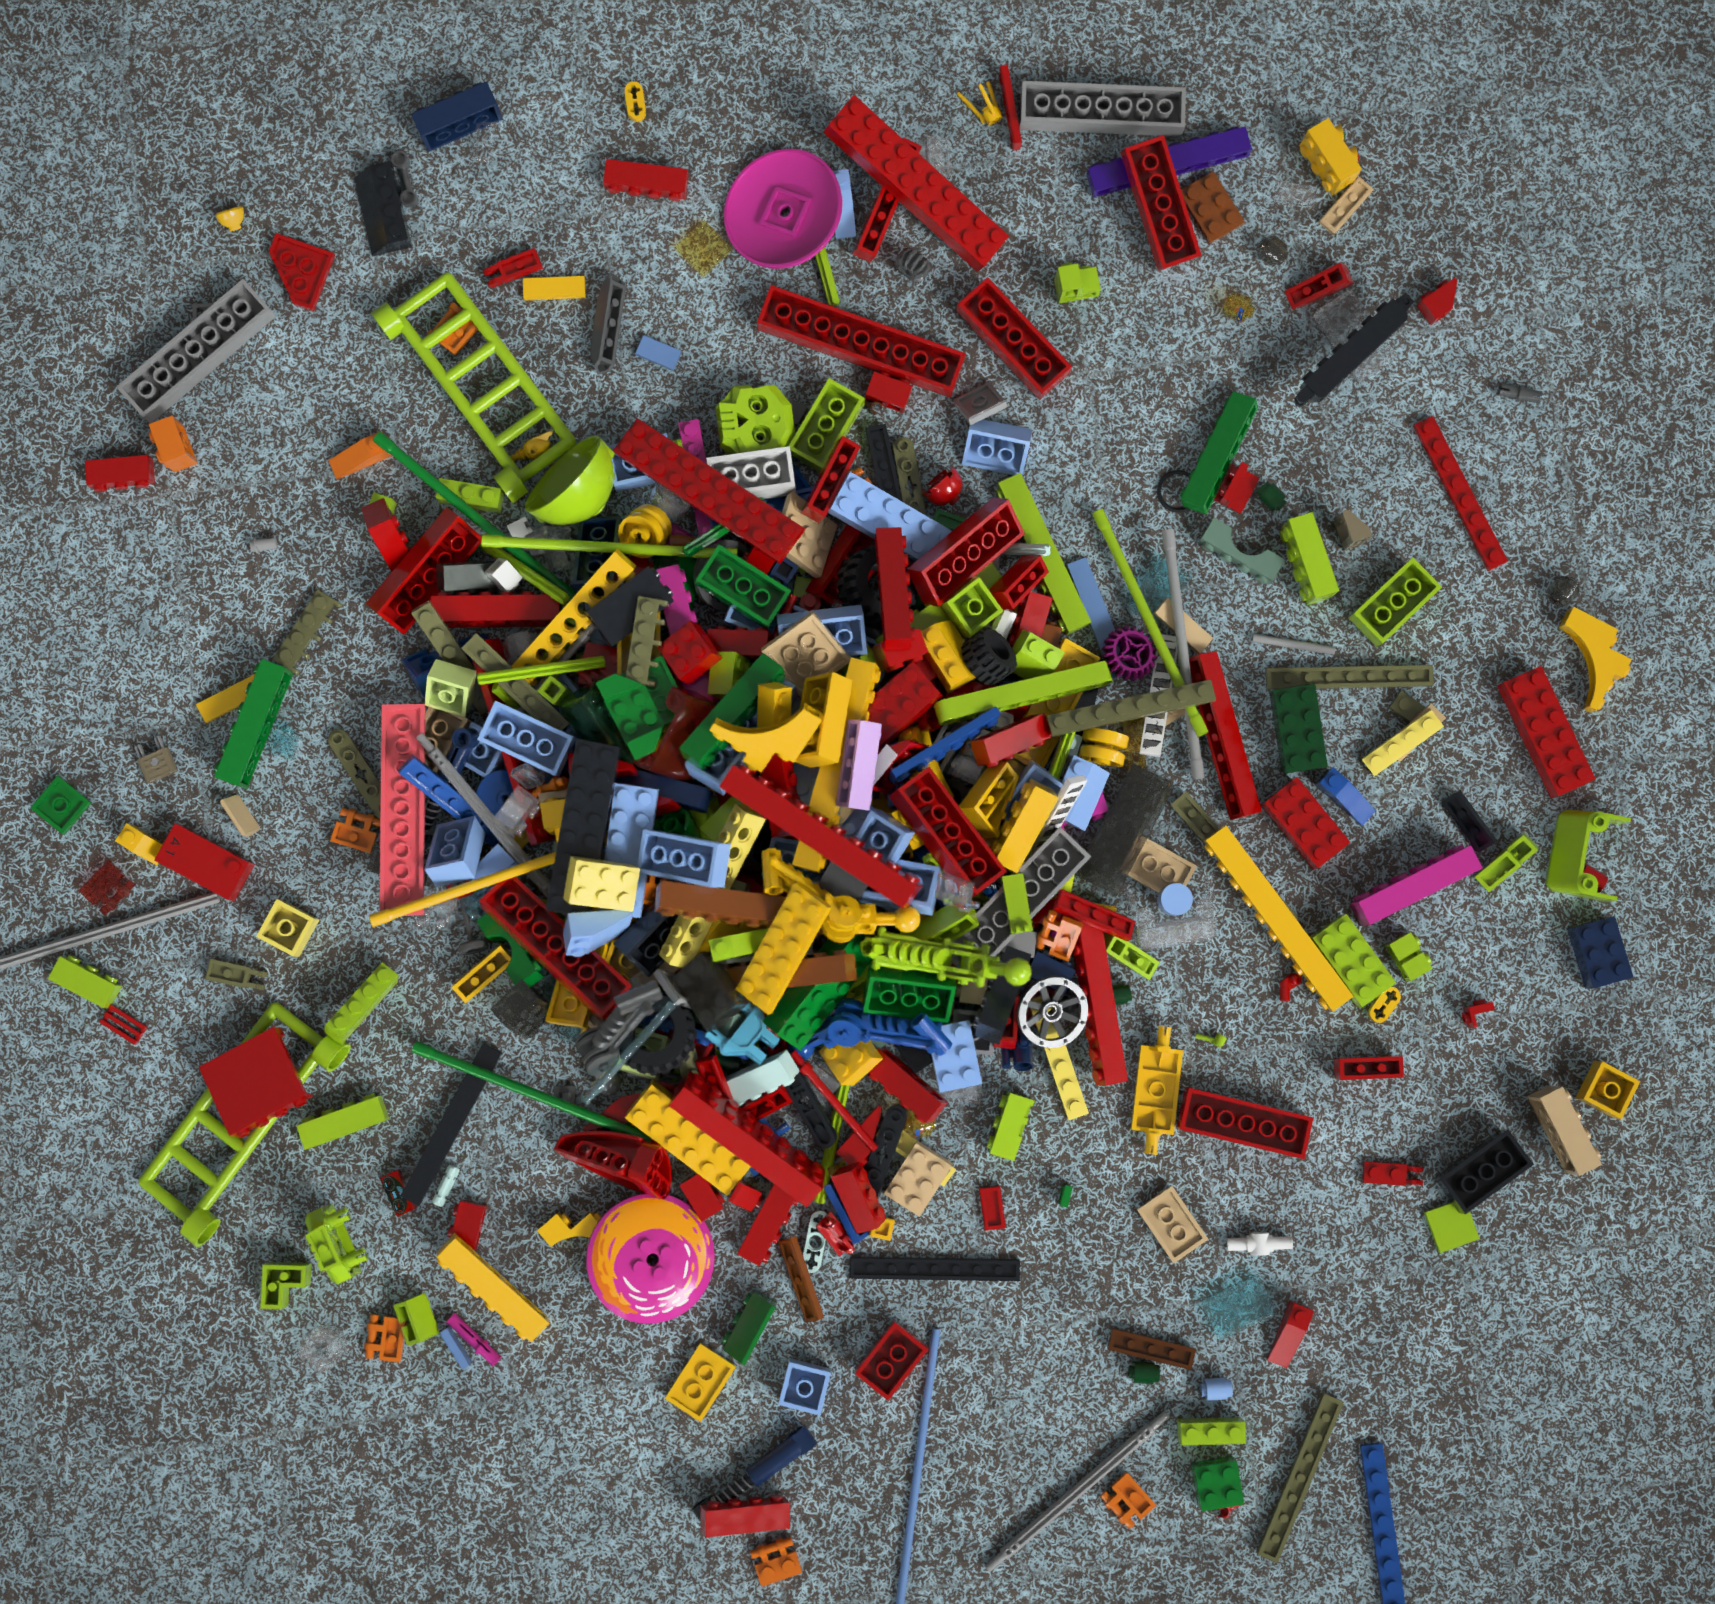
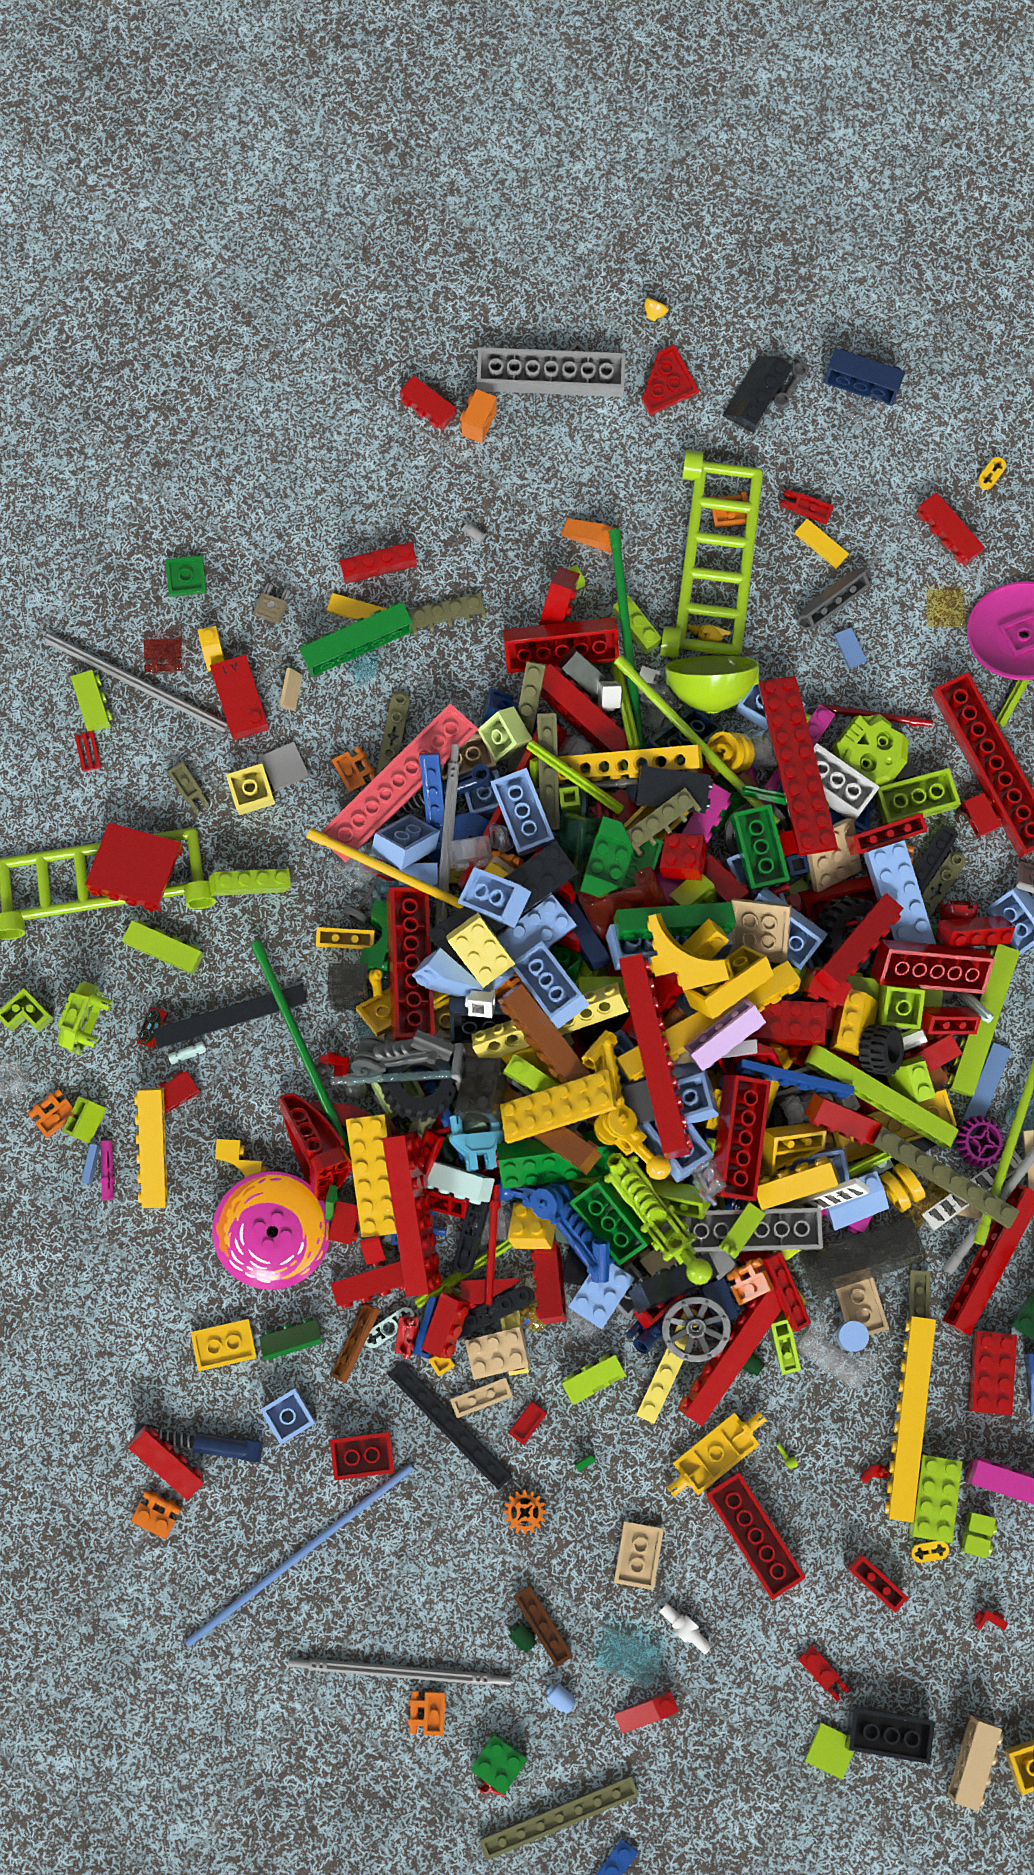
camera: 50 degrees right, 5 degrees down
(209, 644) = (378, 563): none -> red brick
(296, 882) = (284, 766): none -> light grey tile
(538, 983) = (375, 980): none -> yellow arm
(572, 831) = (494, 897): none -> light blue slope
(576, 1075) = (340, 1063): none -> red bracket
(643, 924) = (480, 1003): none -> white brick
(676, 1191) = (331, 1202): none -> green tile
(763, 366) = (912, 720): none -> red bar
(805, 788) = (674, 1016): none -> dark orange cone
(938, 1224) = (481, 1397): none -> tan plate
(972, 491) = (975, 931): none -> red brick
(1065, 1277) = (531, 1518): none -> orange gear
(1211, 1431) = (529, 1723): lime brick -> none

